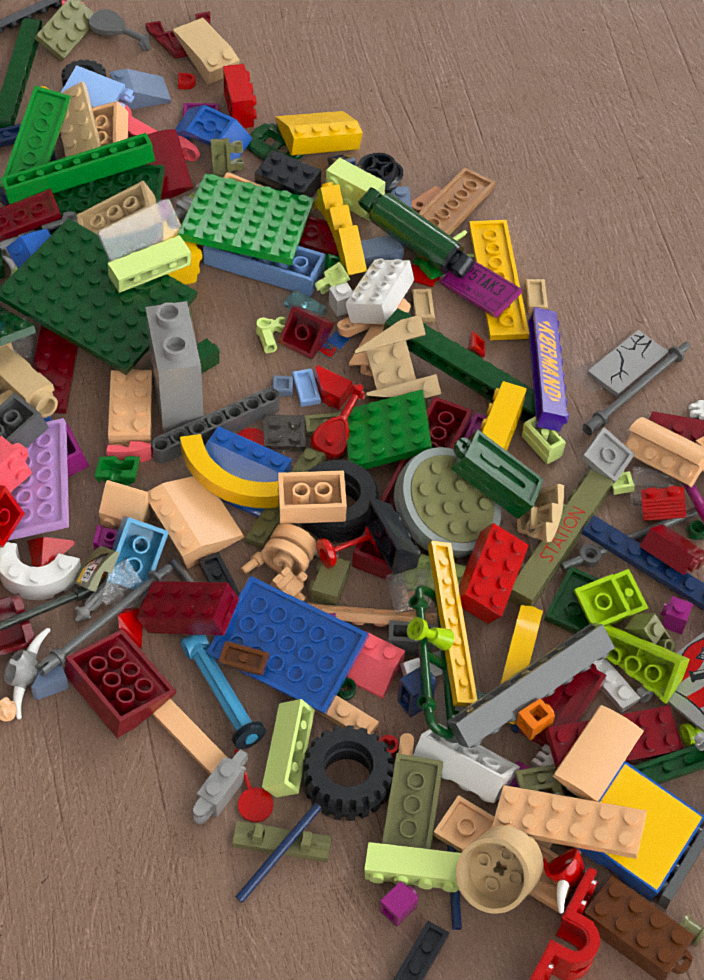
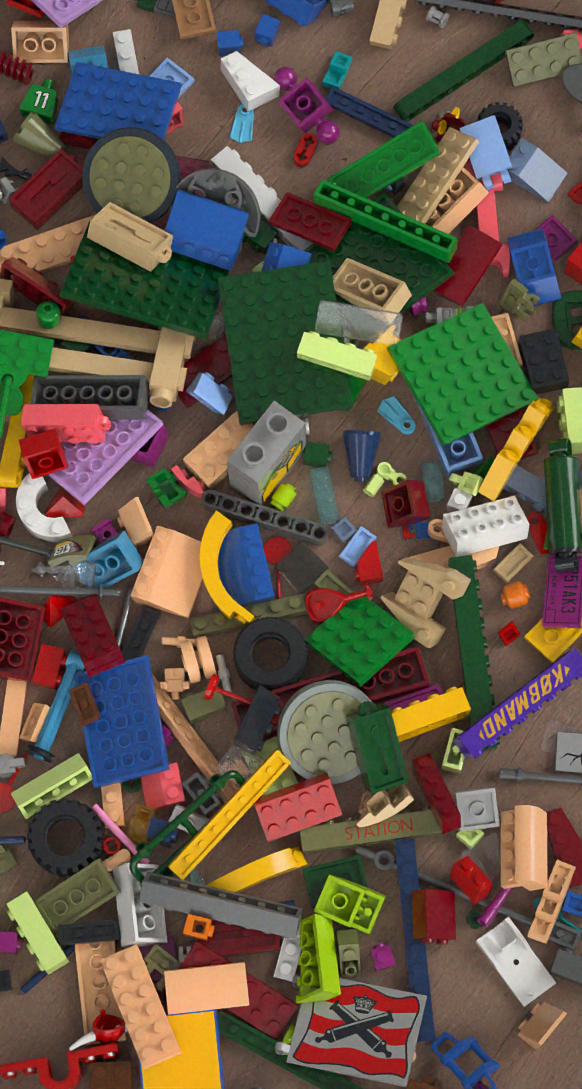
camera: 55 degrees right, 20 degrees up
(56, 224) = (329, 256): dark grey bar -> none
(76, 381) = (209, 393): none -> light blue slope
(177, 669) = (49, 667): none -> red brick
(212, 399) = (283, 497): none -> lime brick
(215, 720) = (34, 722): none -> light nougat plate
(227, 291) = (396, 414): none -> medium azure piece
(233, 324) = (361, 452): none -> dark blue cone
(239, 376) = (324, 495): none -> clear light blue plate
(312, 497) = (239, 642): light nougat brick -> none
(387, 729) = (117, 831): none -> bright pink piece
(390, 700) = (140, 823): none -> clear yellow slope
(439, 637) = (203, 816): lime piece -> none
(451, 318) = (515, 595): none -> orange head
(456, 819) = (88, 932): none -> black plate
(490, 885) = (68, 988): tan brick -> none
(573, 470) = (436, 793): none -> dark red brick

